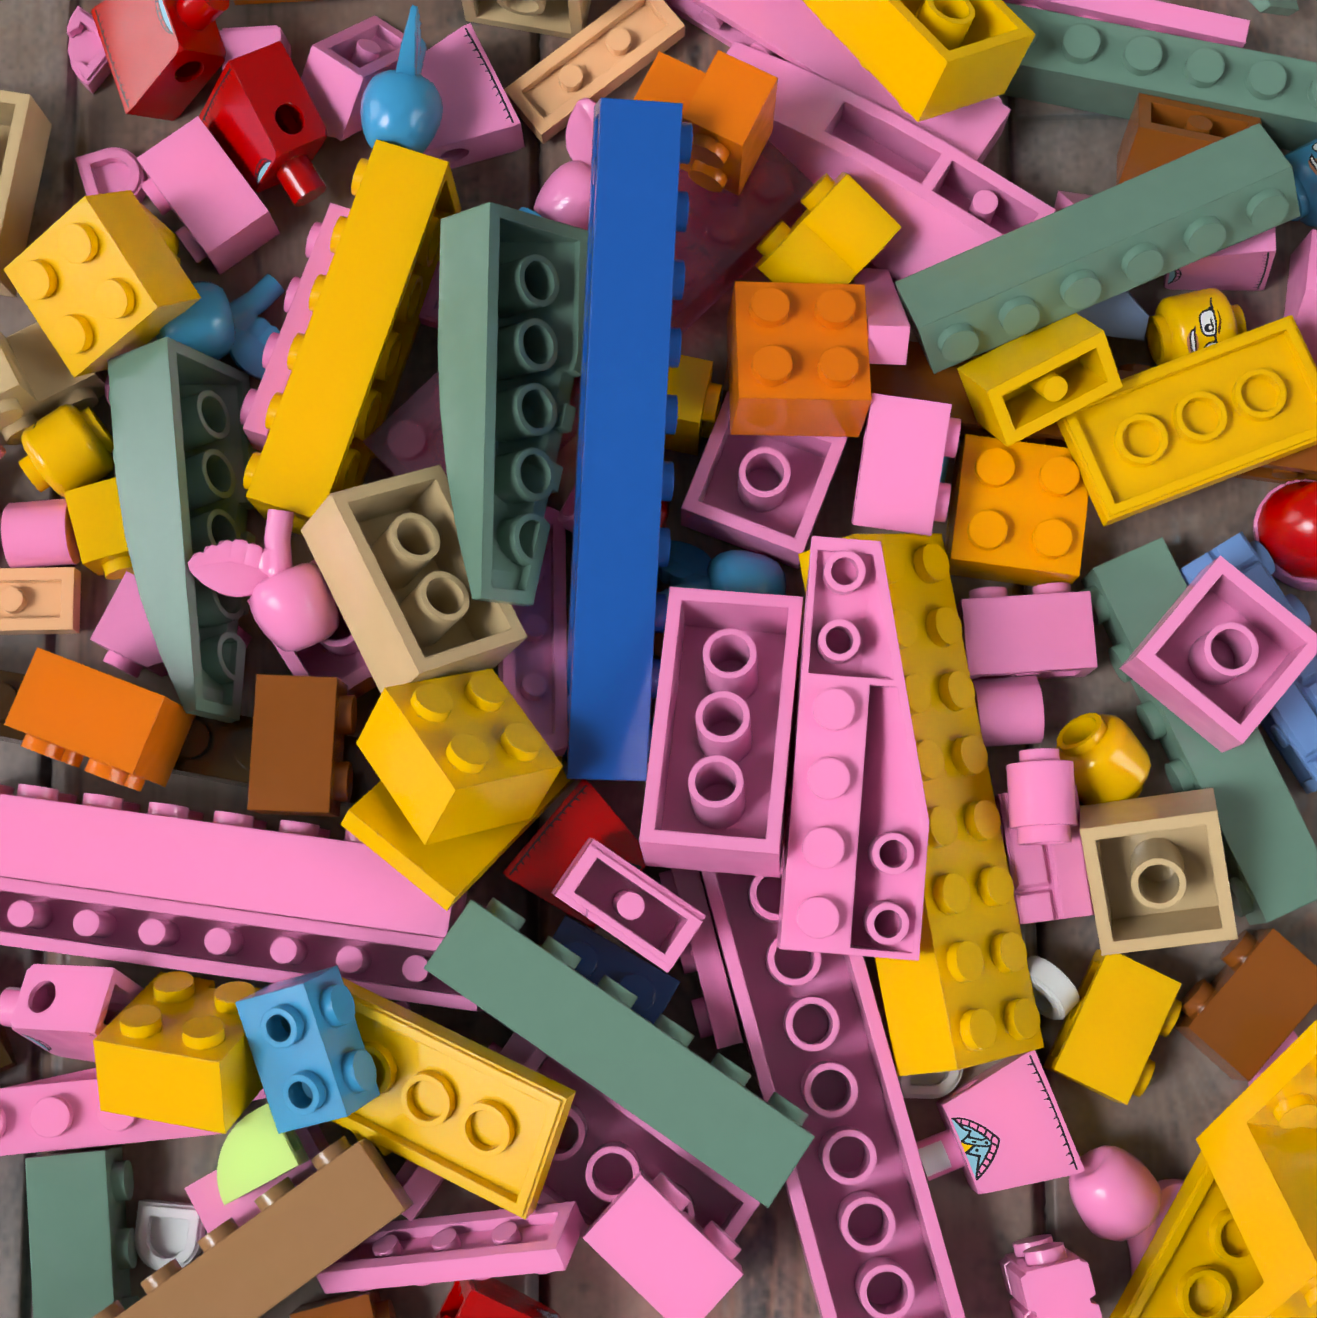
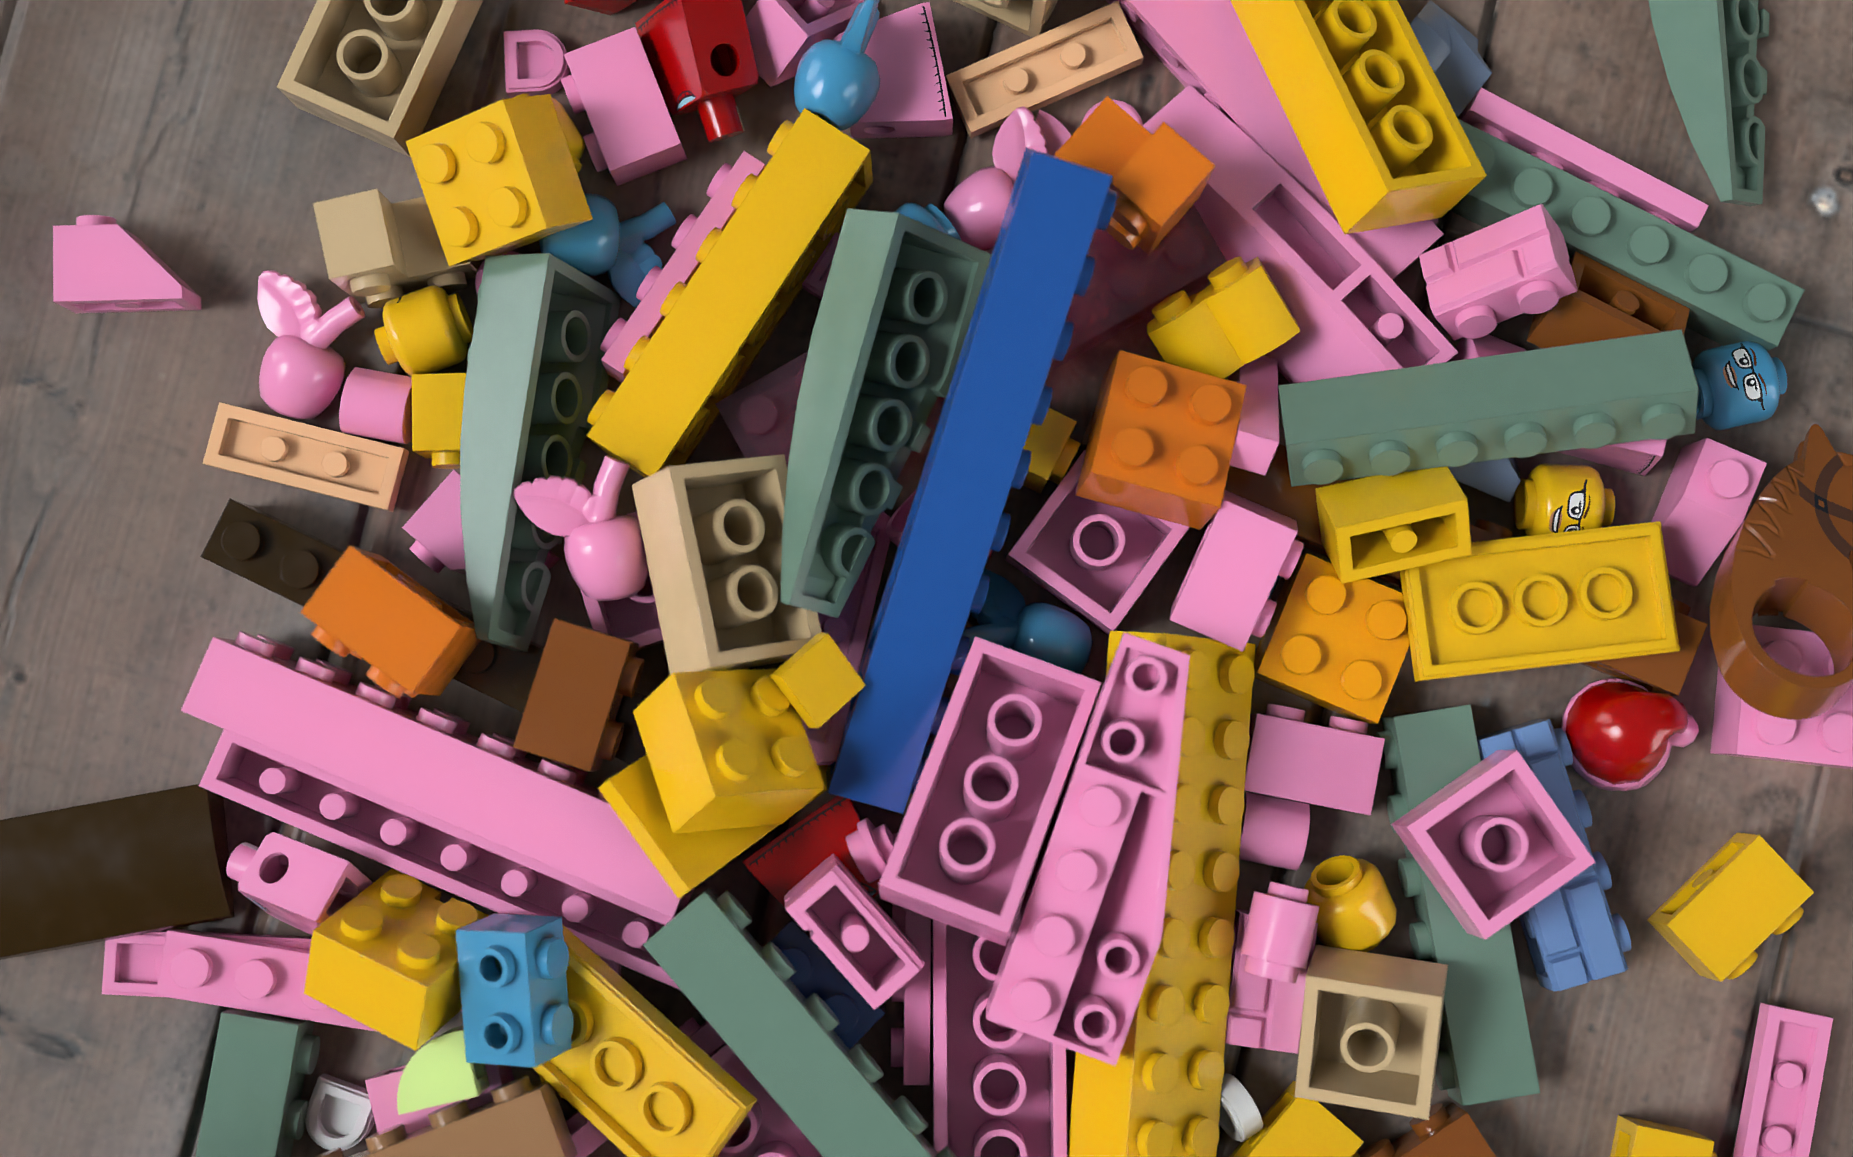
camera: 10 degrees right, 5 degrees up
(528, 666) = (818, 680): none -> yellow tile
(623, 822) = (870, 848): none -> bright pink plate
(1072, 127) = (1498, 274): none -> bright pink brick

